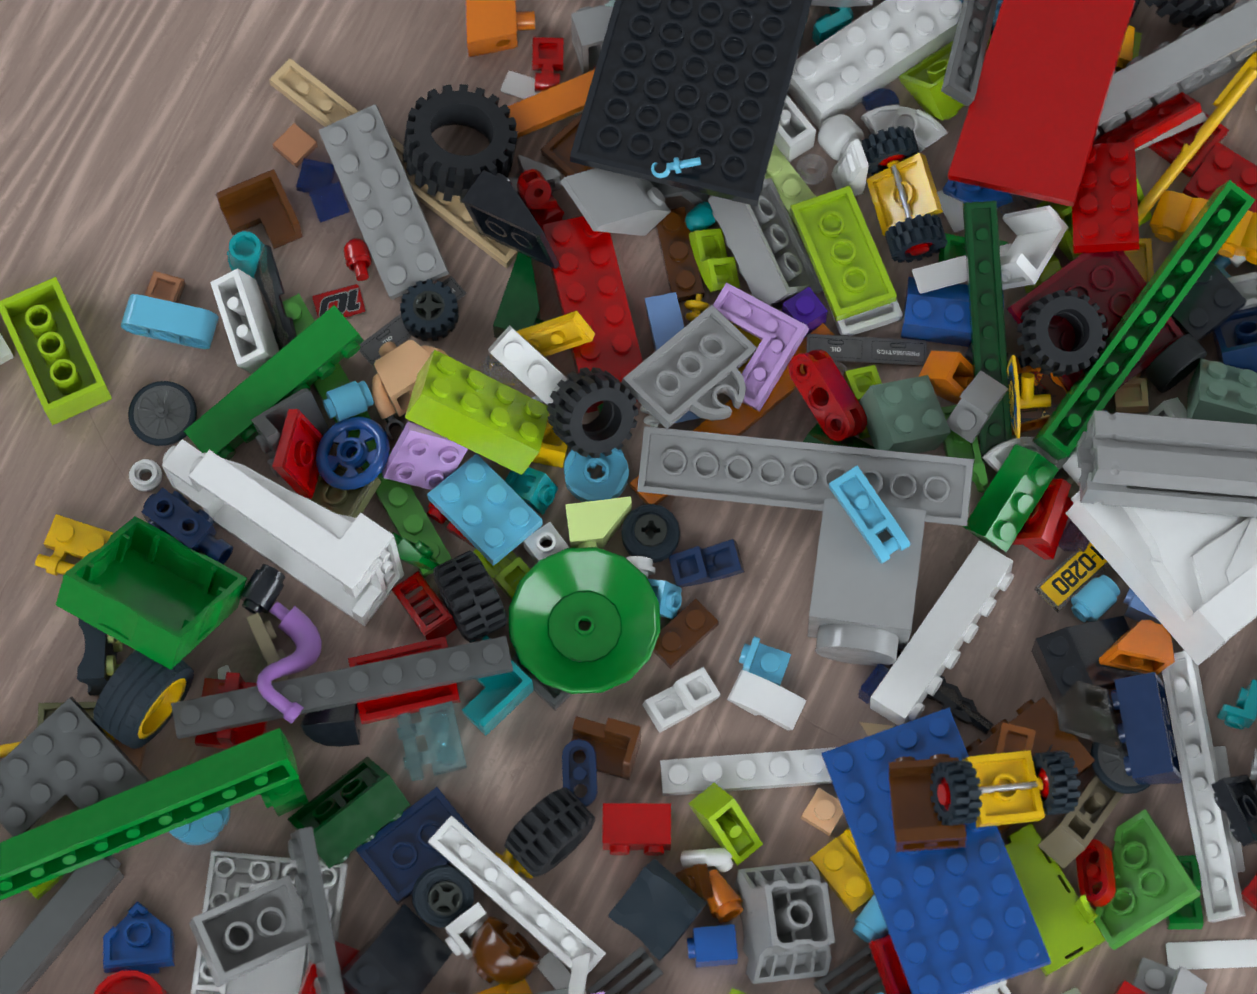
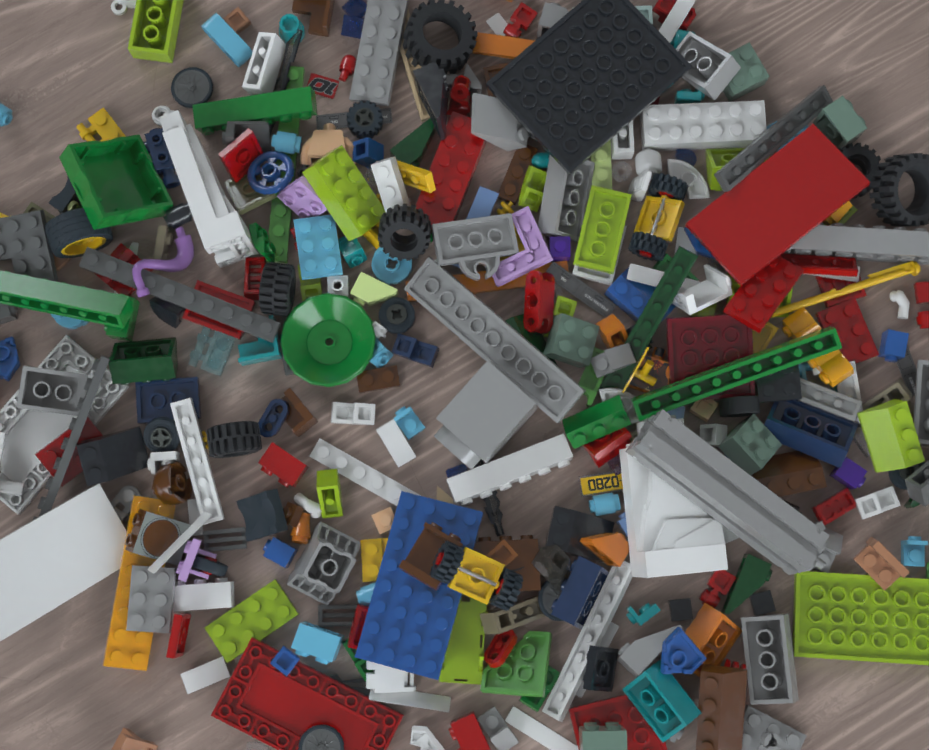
camera: 35 degrees right, 10 degrees up
(466, 345) = (367, 152): none -> blue brick
(677, 165) = (539, 125): medium azure hand -> none
(868, 513) = (502, 384): medium azure plate -> none
(1087, 330) = (698, 362): black tyre -> none

